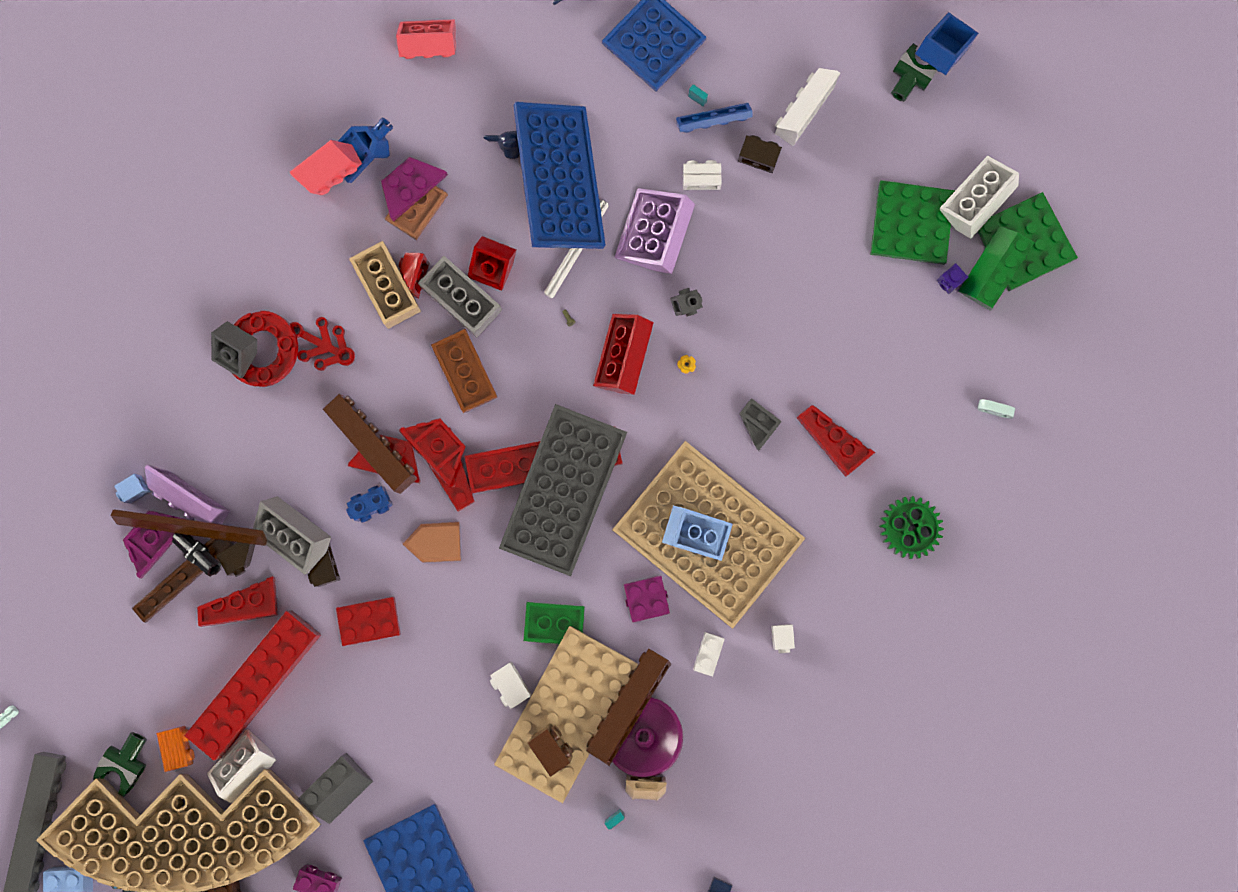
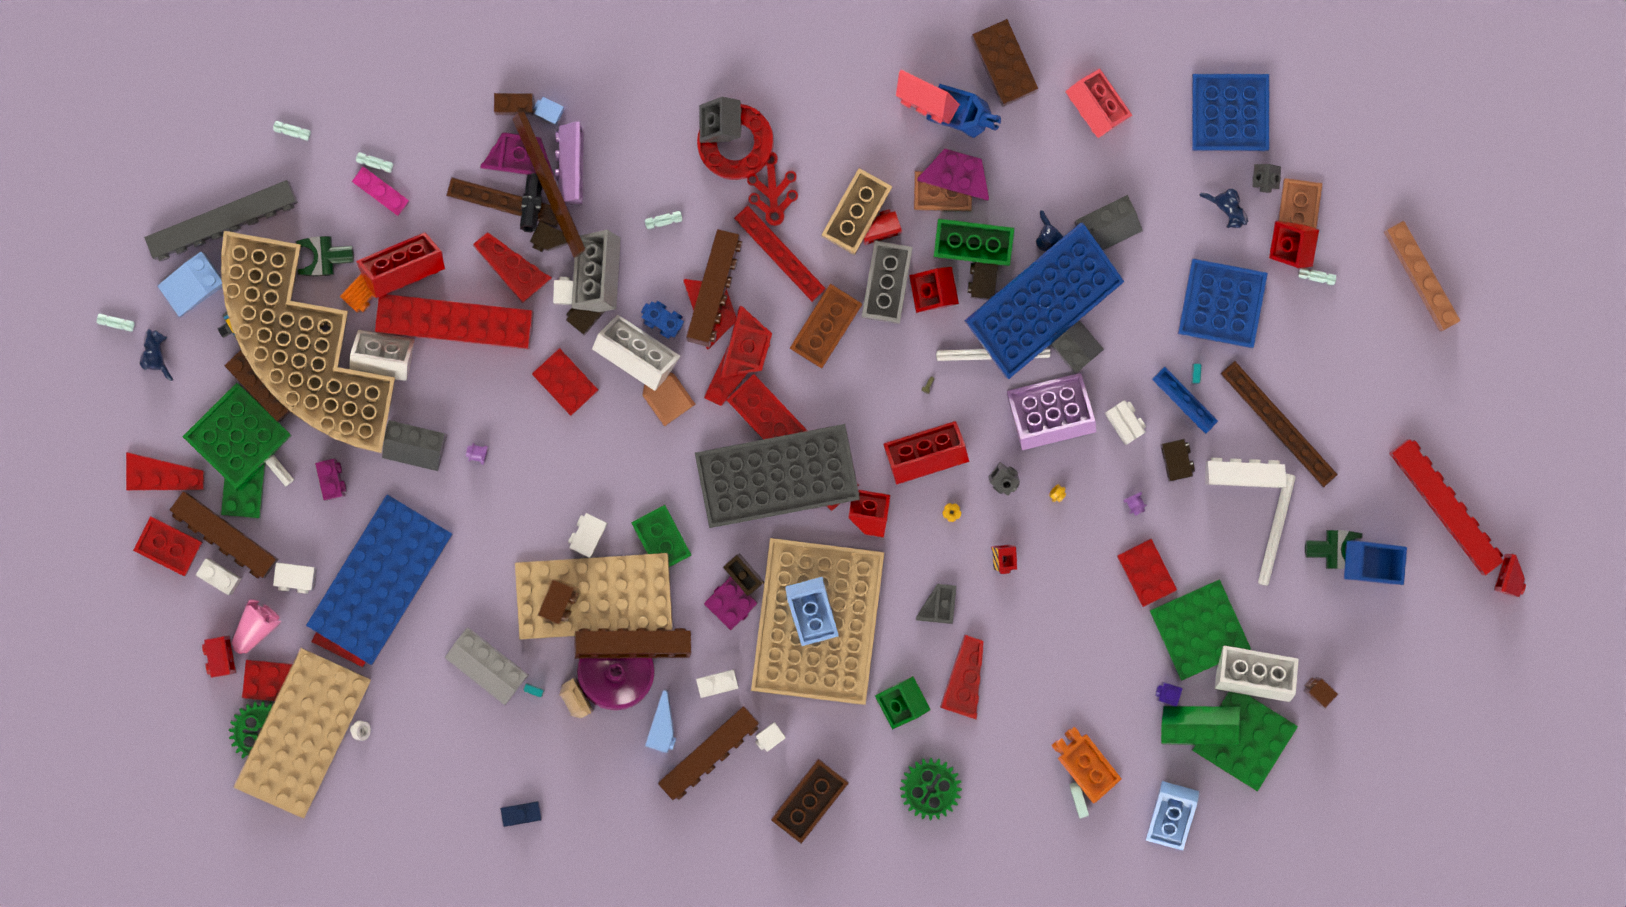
camera: 55 degrees right, 5 degrees up
(75, 666) = (374, 162): none -> light aqua axle
(99, 519) = (513, 103): none -> reddish brown brick
(103, 677) = (380, 191): none -> dark pink plate
(173, 700) = (401, 264): none -> red slope
(287, 451) = (663, 220): none -> light aqua axle
(289, 574) = (563, 291): none -> white brick
(343, 91) = (1004, 62): none -> reddish brown brick
(379, 371) = (779, 253): none -> red tile
(379, 737) = (477, 453): none -> medium lavender brick
(381, 544) = (635, 352): none -> white slope
(472, 204) = (973, 242): none -> green slope
(509, 217) = (983, 280): none -> dark brown brick
(531, 82) = (1112, 223): none -> dark grey slope
(567, 847) = (486, 666): none -> light grey slope
(615, 178) = (1077, 347): none -> dark grey slope
(629, 572) = (743, 574): none -> dark brown brick
(645, 431) = (870, 512): none -> red slope
(723, 731) = (662, 728): none -> light blue slope
(726, 267) = (1057, 493): none -> yellow plate
(753, 343) = (1010, 558): none -> red brick
(764, 700) = (708, 753): none -> reddish brown brick
(775, 209) = (1136, 504): none -> medium lavender brick
(781, 56) = (1279, 424): none -> reddish brown tile
(823, 505) = (902, 702): none -> green slope
(837, 236) = (1147, 572): none -> red plate
(860, 638) = (809, 800): none -> reddish brown brick
(875, 118) = (1276, 531): none -> white axle
(970, 383) = (1086, 764): none -> orange tile
(1027, 153) = (1320, 691): none -> reddish brown brick
(1056, 338) = (1172, 815): none -> light blue slope

